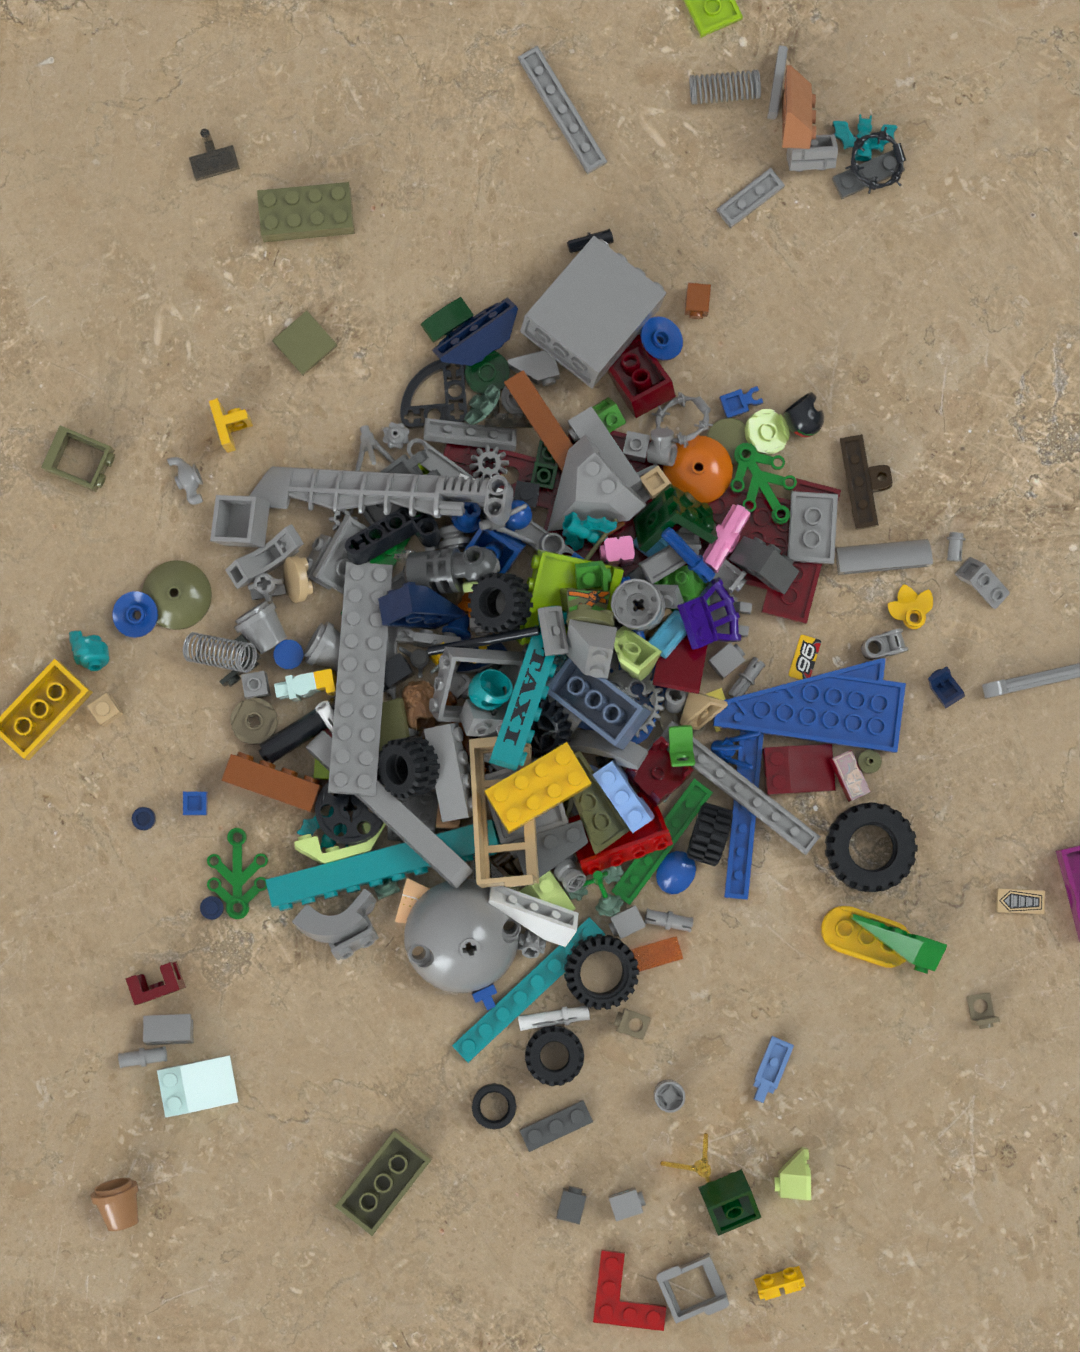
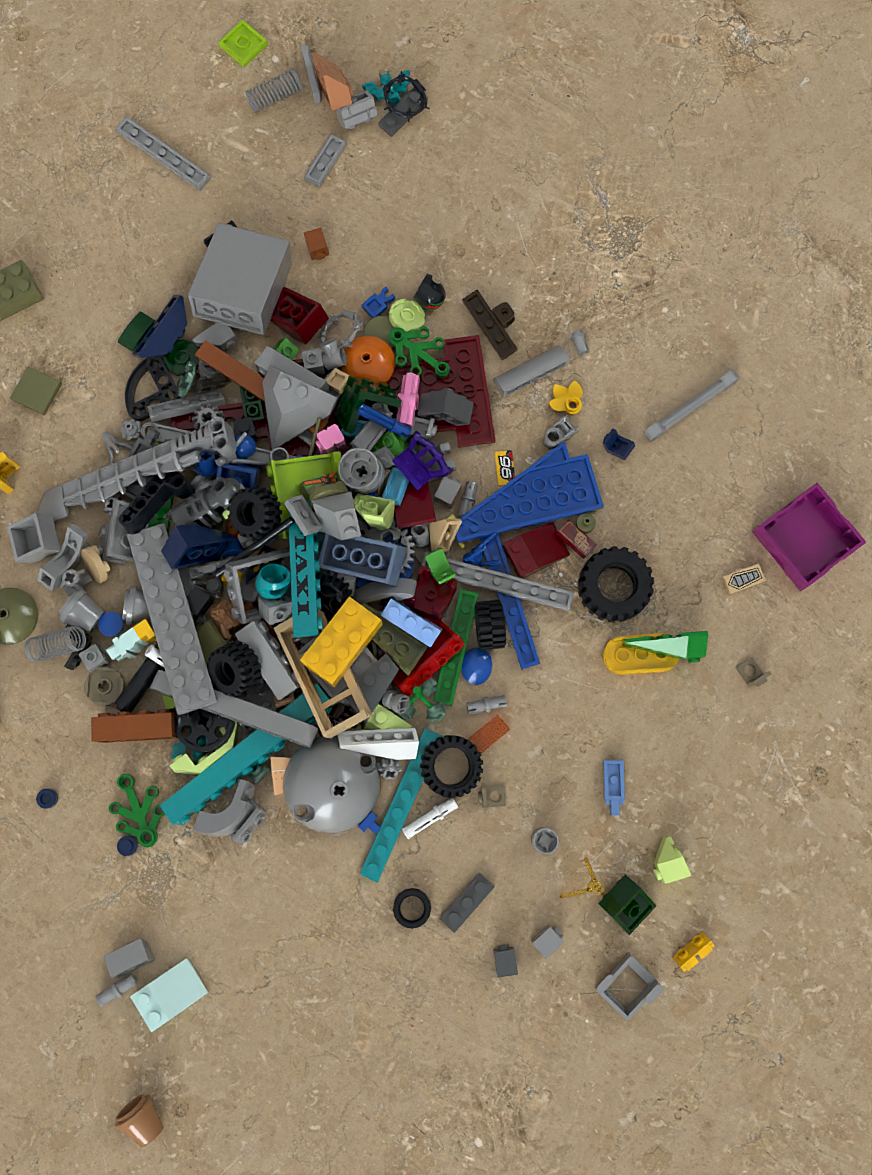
camera: 25 degrees left, 5 degrees down
(139, 988) = (93, 936): dark red panel -> none
(195, 803) = (81, 769): blue tile -> none
(383, 1182) = (348, 1008): olive brick -> none
(564, 1074) = (458, 856): black tyre -> none
(589, 529) = (297, 435): teal animal -> none
(592, 575) = (318, 465): bright green bracket -> none
(611, 1309) = (579, 1031): red plate -> none
(626, 922) = (455, 720): light grey brick -> none
(667, 333) = (301, 280): blue dish -> none
(812, 527) = (469, 369): light grey tile -> none
(983, 581) = (611, 356): light grey bracket -> none

